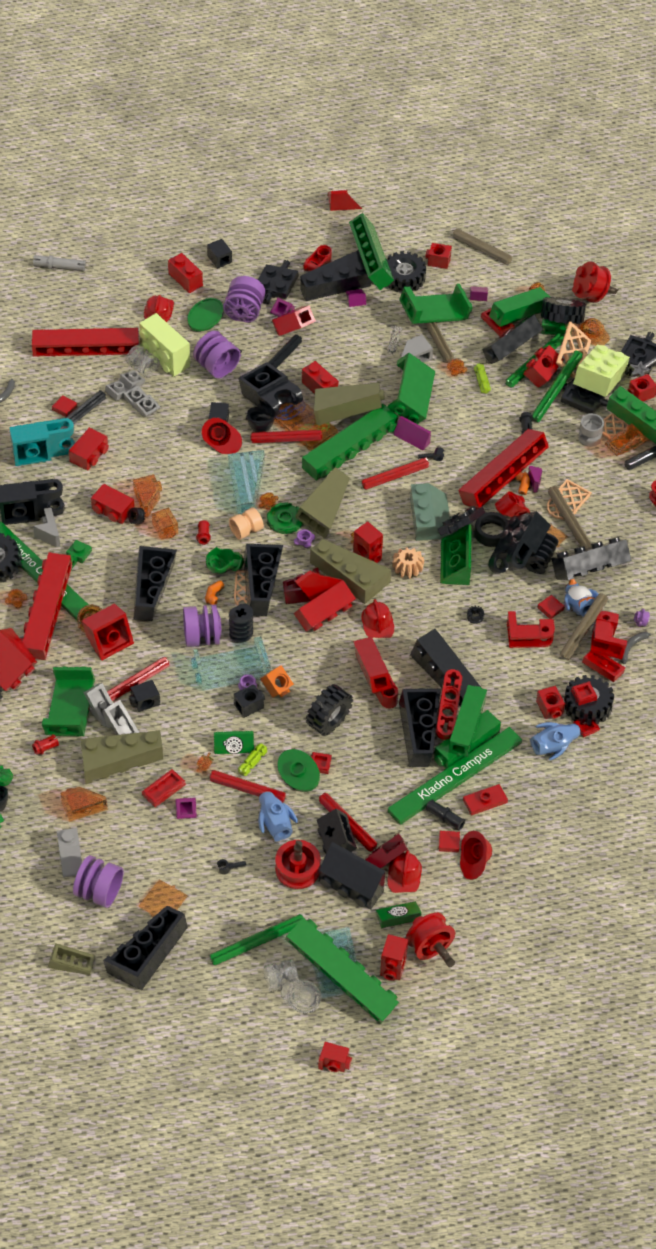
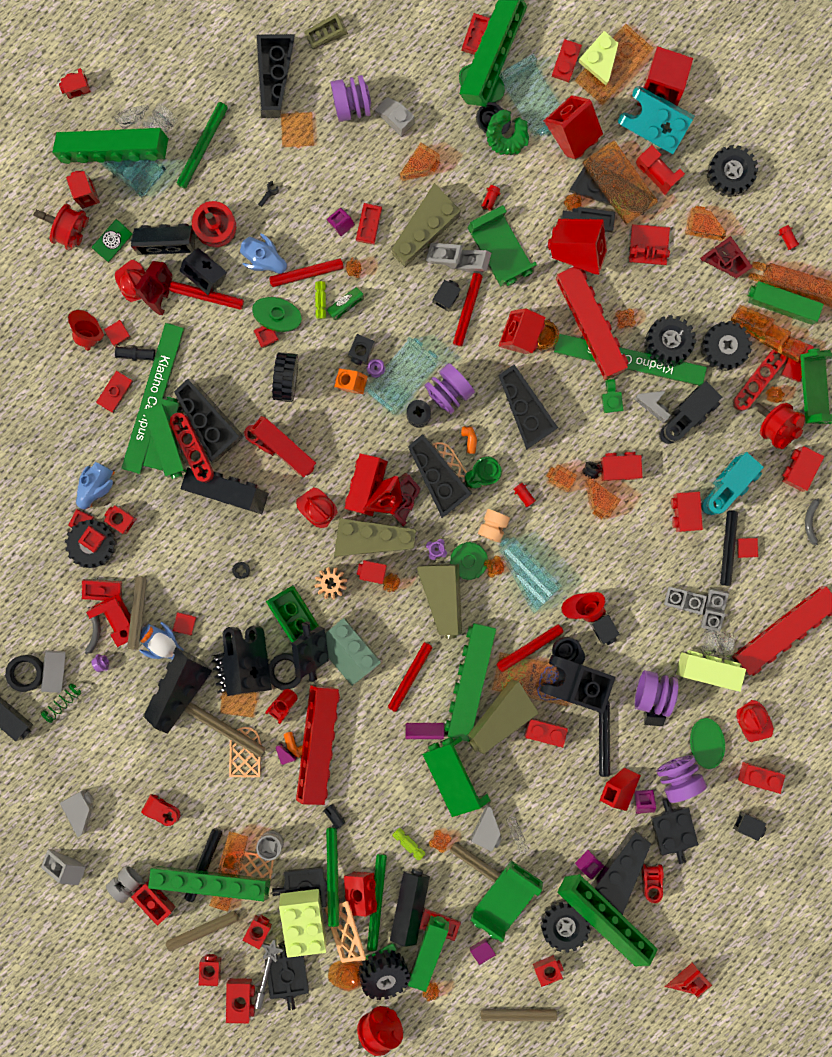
camera: 140 degrees right, 35 degrees up
(437, 455) = (387, 724): black hand -> none
(529, 635) = (181, 578): red piece -> none

